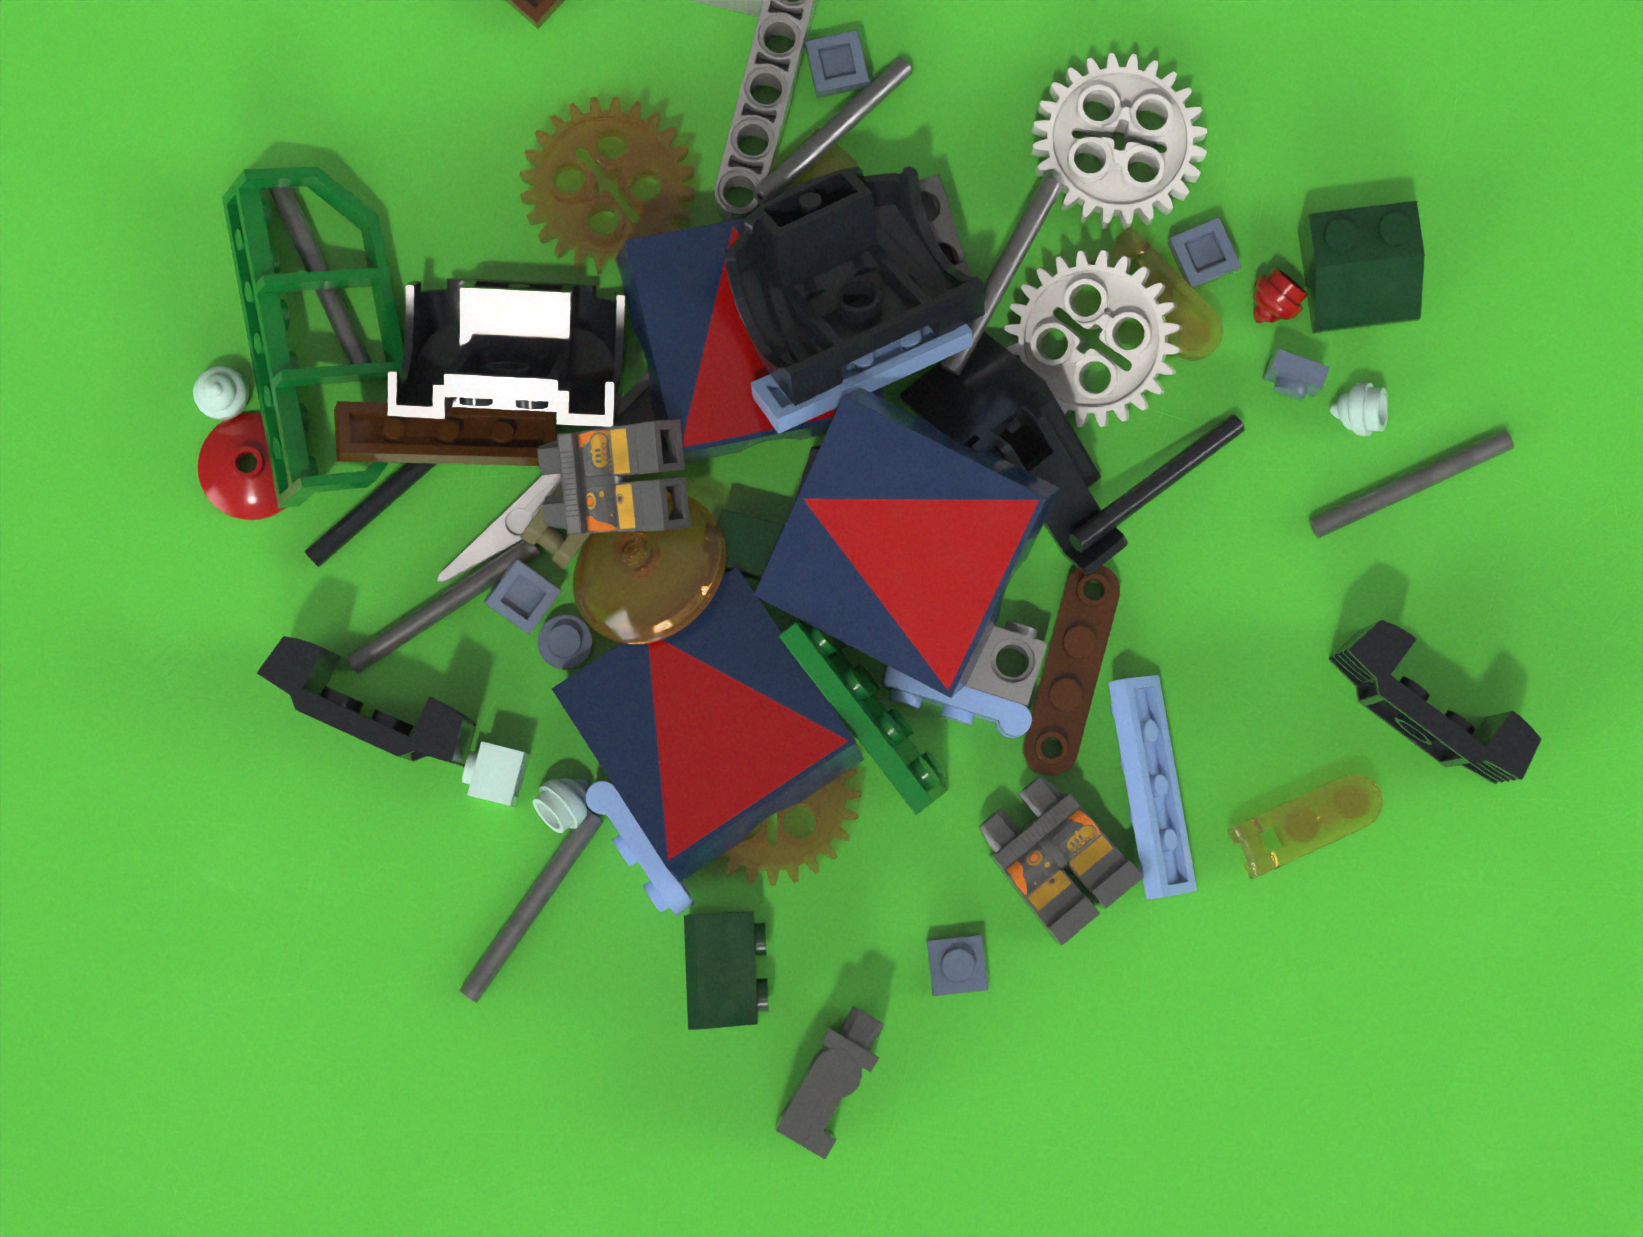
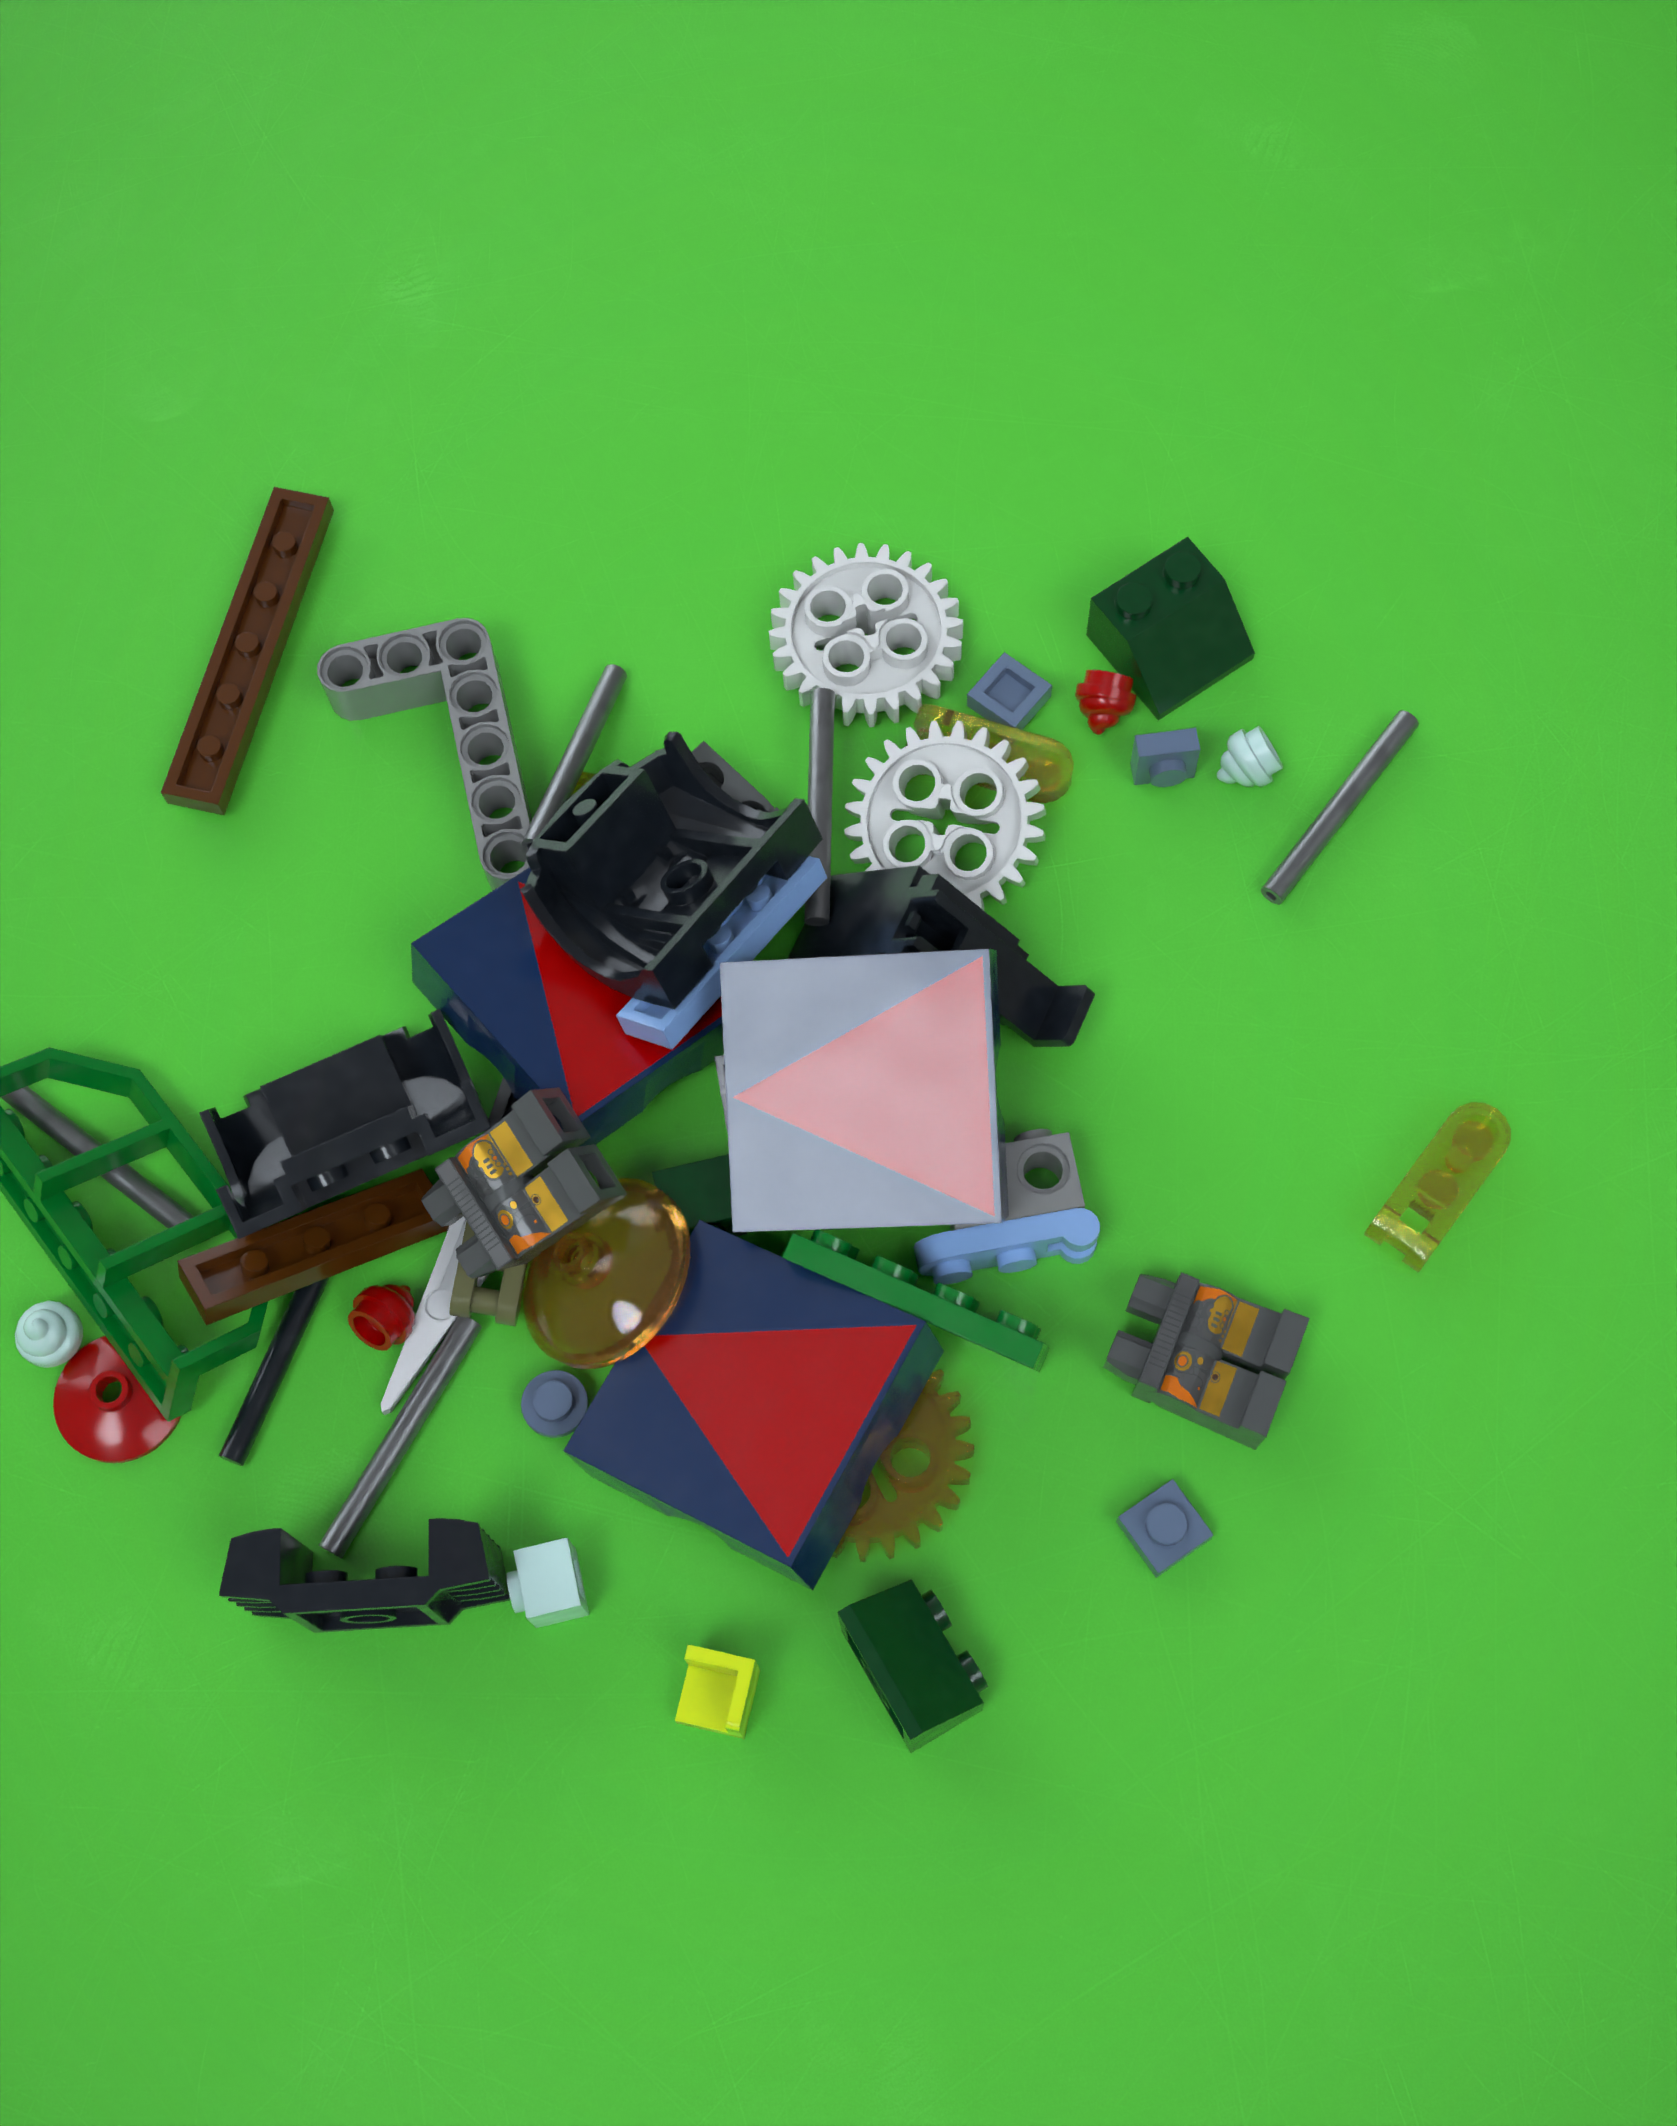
camera: 20 degrees left, 15 degrees down
(472, 509) = (383, 1315): none -> red plate
(522, 595) = (483, 1376): sand blue plate -> none
(530, 907) = (661, 1716): flat silver piece -> none
(562, 803) = (638, 1579): light aqua plate -> none
(577, 914) = (717, 1691): none -> neon yellow panel
(635, 847) = (746, 1579): light blue plate -> none
(646, 156) = (342, 968): clear orange gear -> none
(829, 1078) = (1095, 1724): dark grey hips -> none
(837, 64) = (546, 699): sand blue plate -> none
(1071, 671) = (1108, 1158): reddish brown plate -> none
(1152, 786) = (1262, 1228): light blue plate -> none
(1156, 483) = (1087, 927): black bar -> none
(1497, 749) = (1494, 1013): black plate -> none

